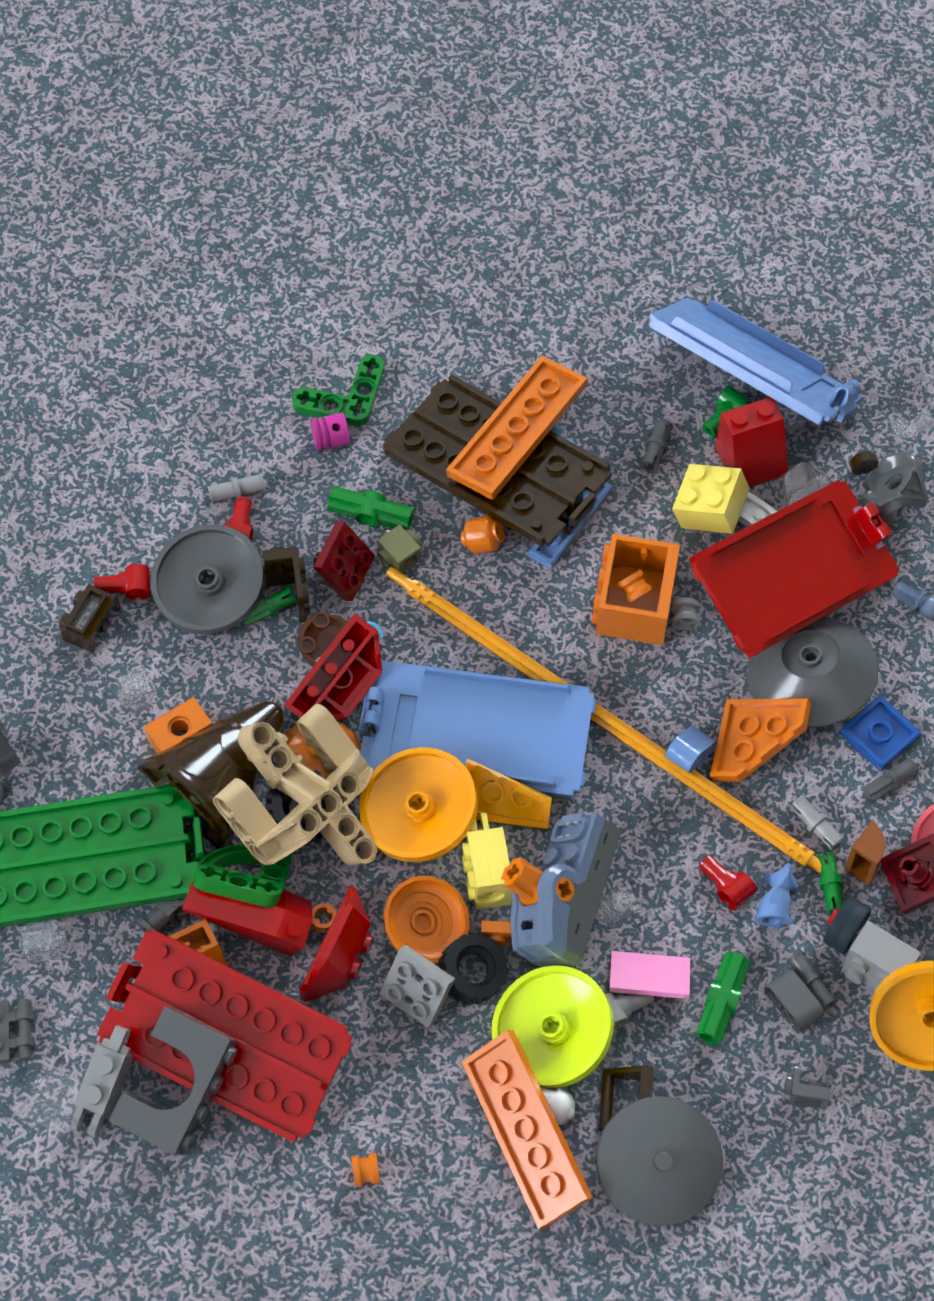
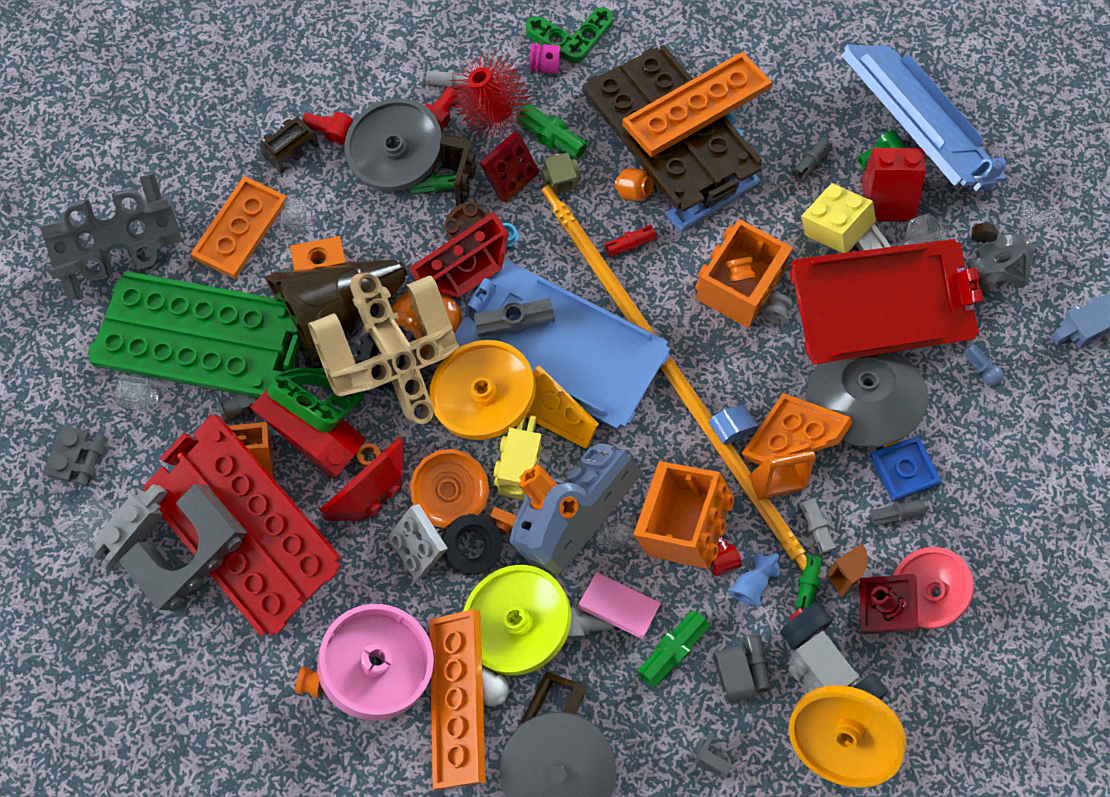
camera: 20 degrees right, 5 degrees up
(75, 726) = (239, 227): none -> orange plate
(292, 491) = (490, 95): none -> red piece
(403, 728) = (498, 320): none -> dark grey piece
(432, 1093) = (384, 689): none -> bright pink piece
(503, 596) = (630, 240): none -> red pin
(681, 857) = (684, 515): none -> orange container
(762, 782) = (782, 475): none -> orange tile

